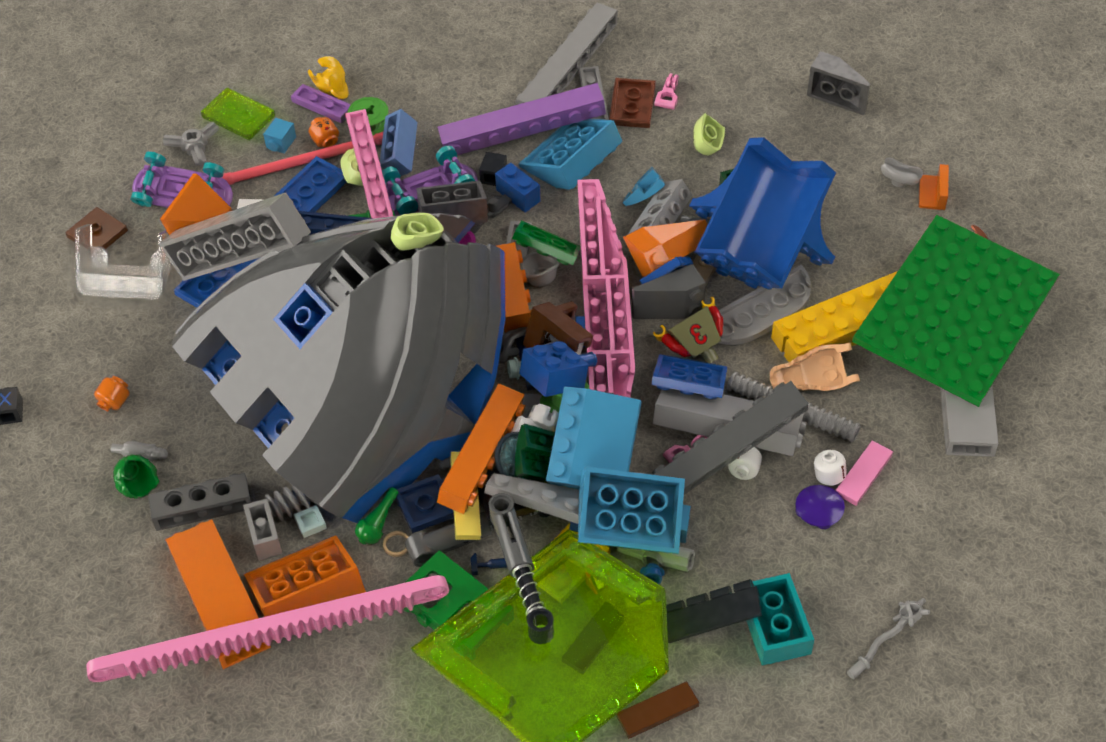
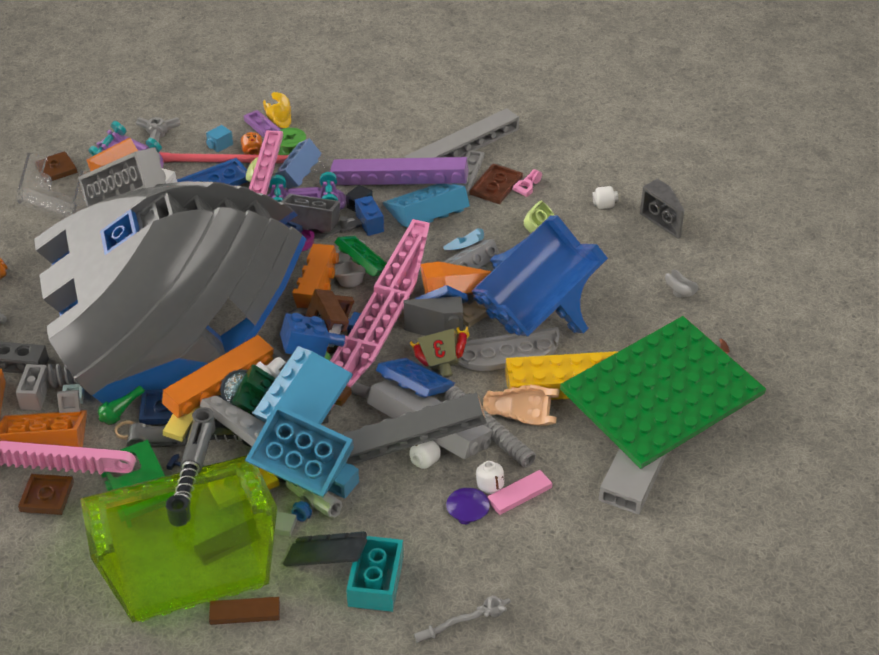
camera: 20 degrees right, 10 degrees down
(238, 113) = (199, 117): clear neon green plate -> none
(314, 532) = (69, 401): none -> light grey tile
(357, 653) = (46, 494): none -> reddish brown plate
(415, 231) = (229, 194): yellowish green piece -> none
(763, 87) = (604, 197): none -> white head
(934, 189) = (704, 305): orange panel -> none

